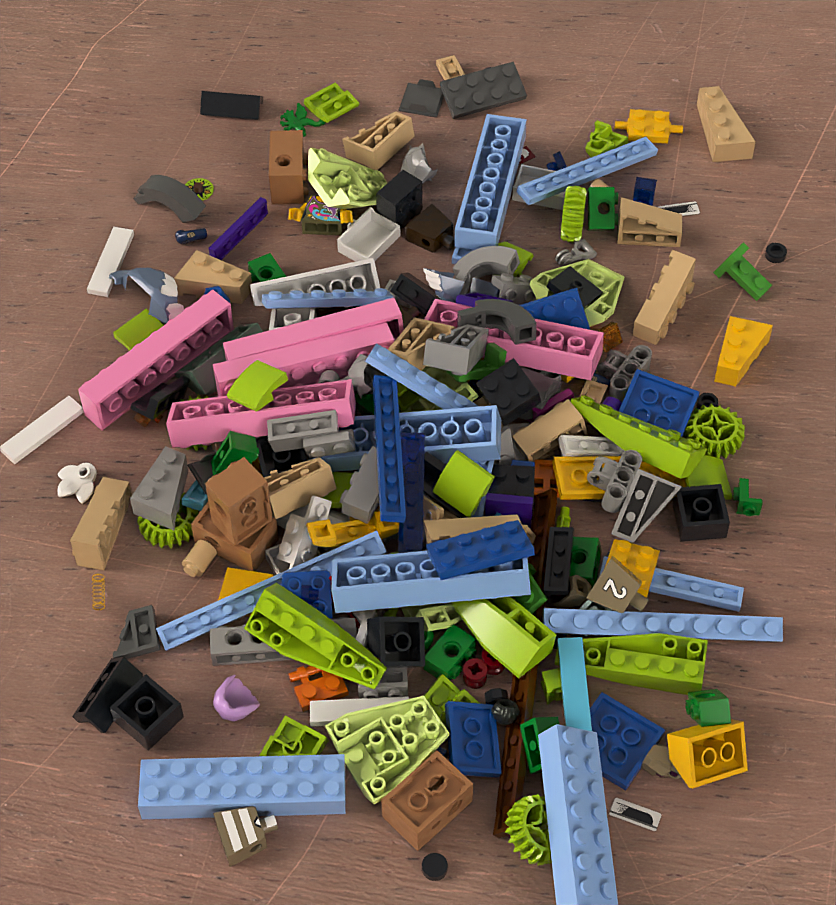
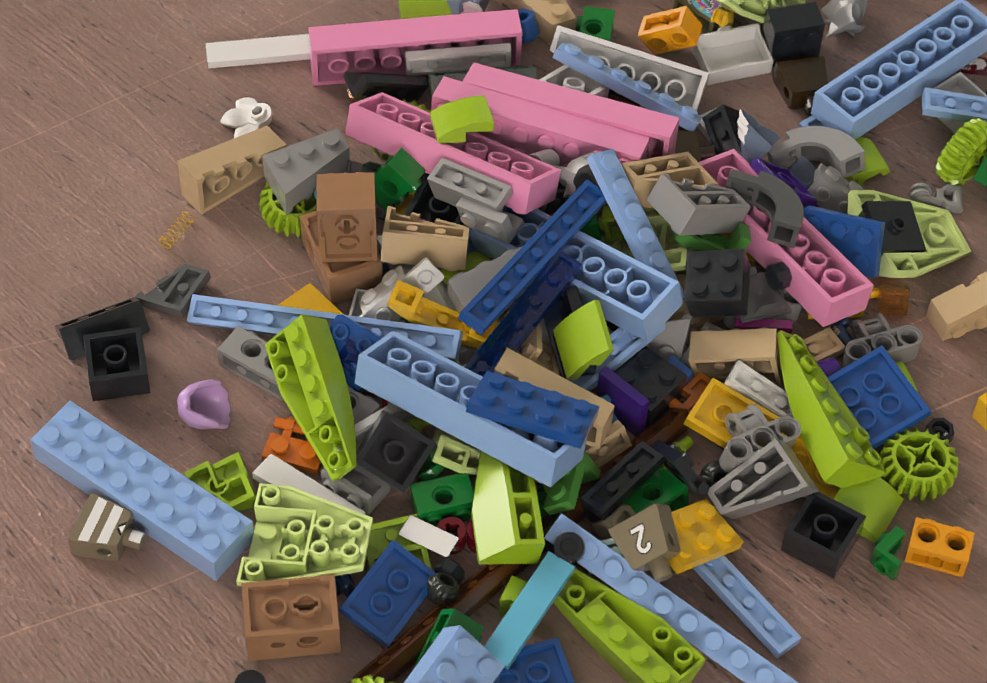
camera: 35 degrees right, 0 degrees up
(194, 349) = (457, 58): none -> white tile
(199, 558) = (290, 257): tan brick -> none
(320, 245) = (670, 30): none -> light orange brick
(464, 683) = (428, 536): none -> white sticker
(538, 364) = (778, 275): none -> black tile
(568, 626) = (569, 547): none -> black tile
(586, 527) = (680, 465): none -> black plate
(603, 521) = (712, 473): none -> pearl dark grey piece
(771, 479) = (938, 552): none -> light orange brick

